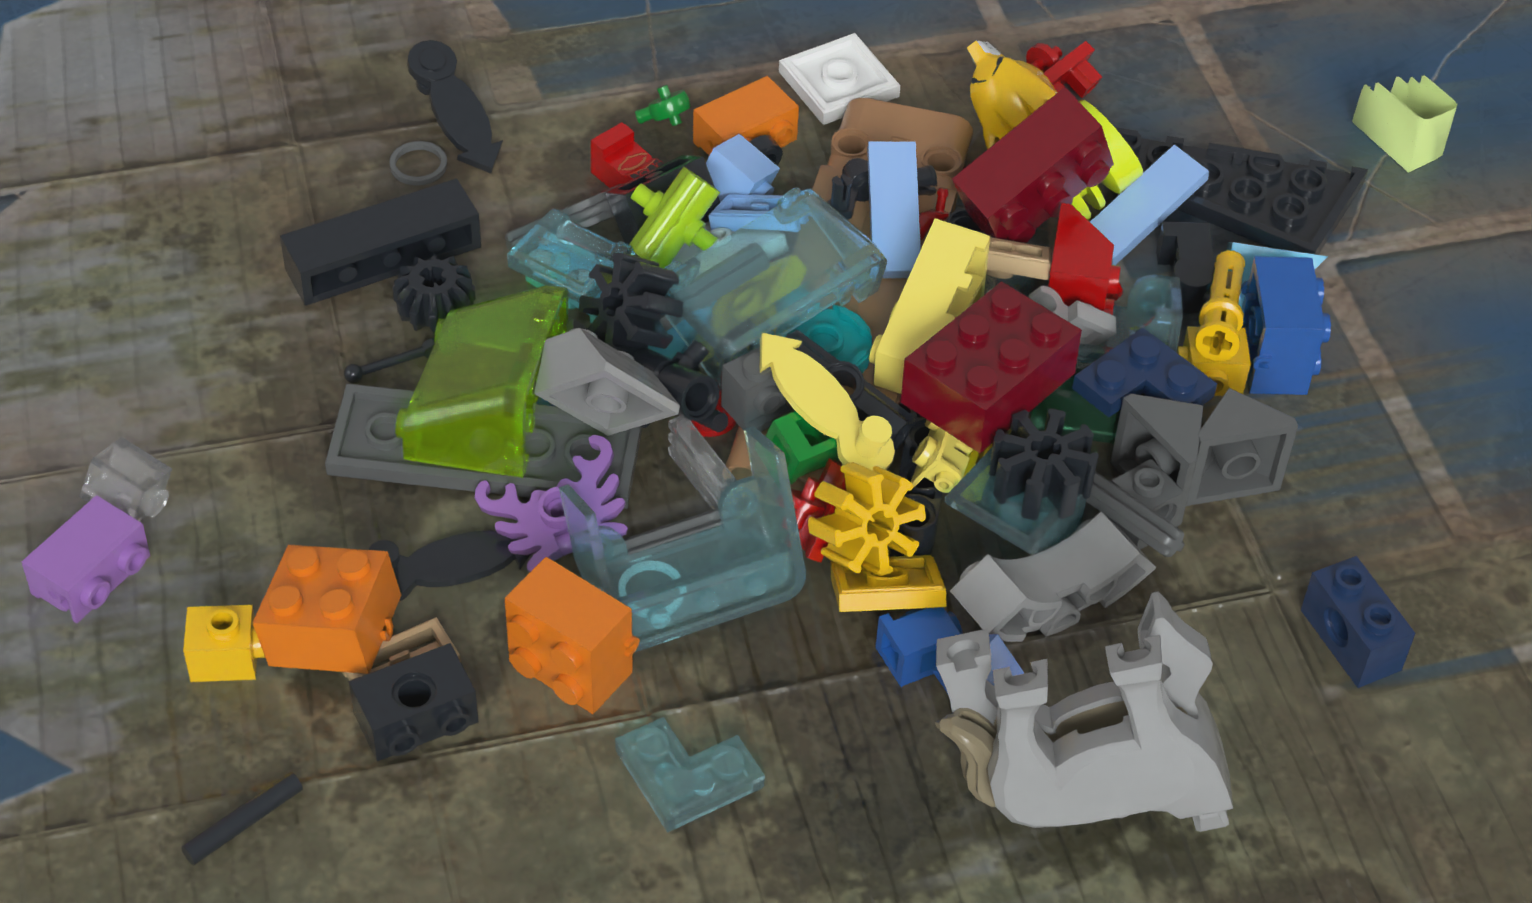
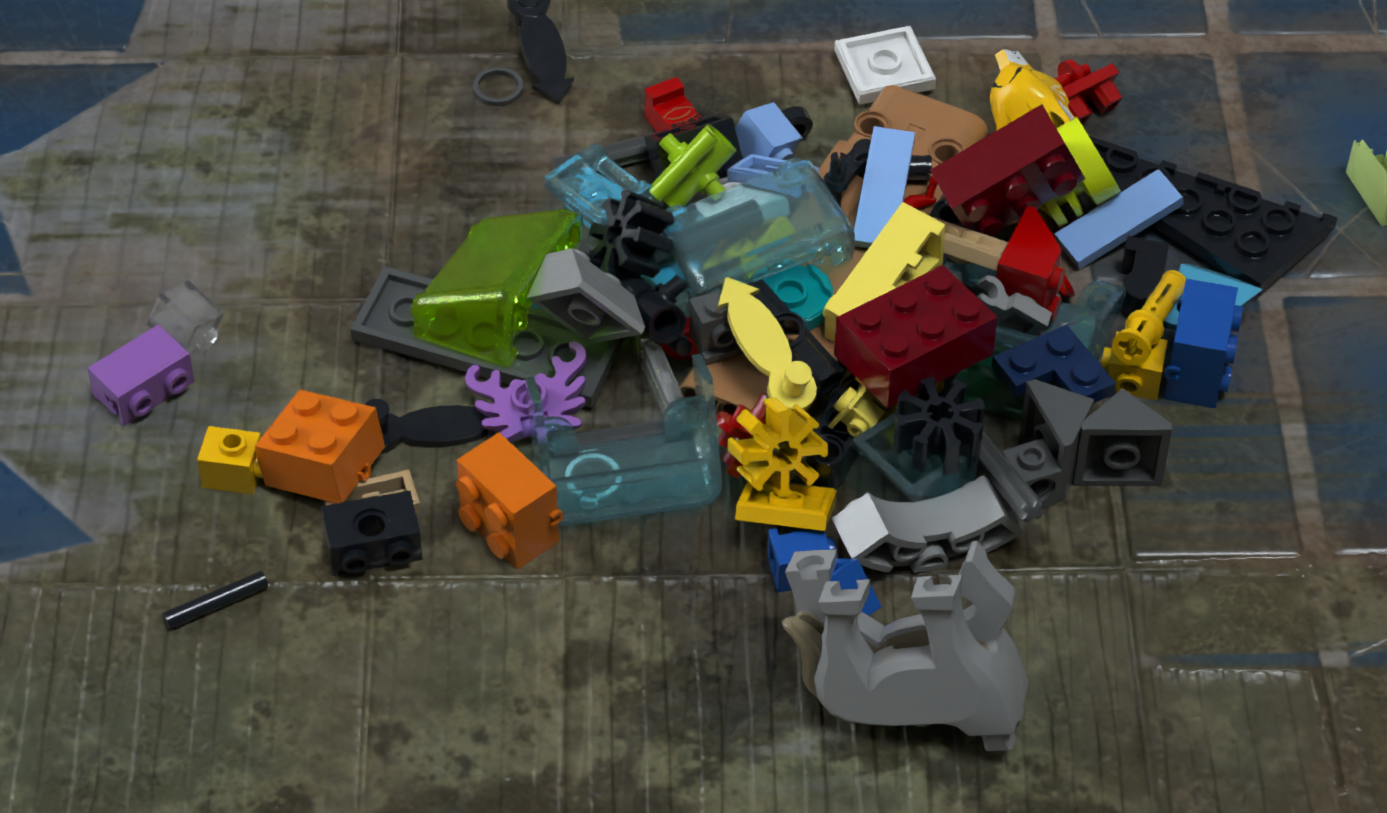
camera: 15 degrees right, 0 degrees up
(354, 373) = (396, 258): black hinge -> none
(379, 240) = (446, 150): black brick -> none
(432, 290) = (477, 197): black gear -> none
(666, 106) = (725, 68): green piece -> none
(684, 785) = (576, 639): clear light blue plate -> none
(748, 111) = (791, 84): orange hinge -> none
(803, 445) = (729, 378): green brick -> none
(1357, 621) = (1182, 605): dark blue brick -> none

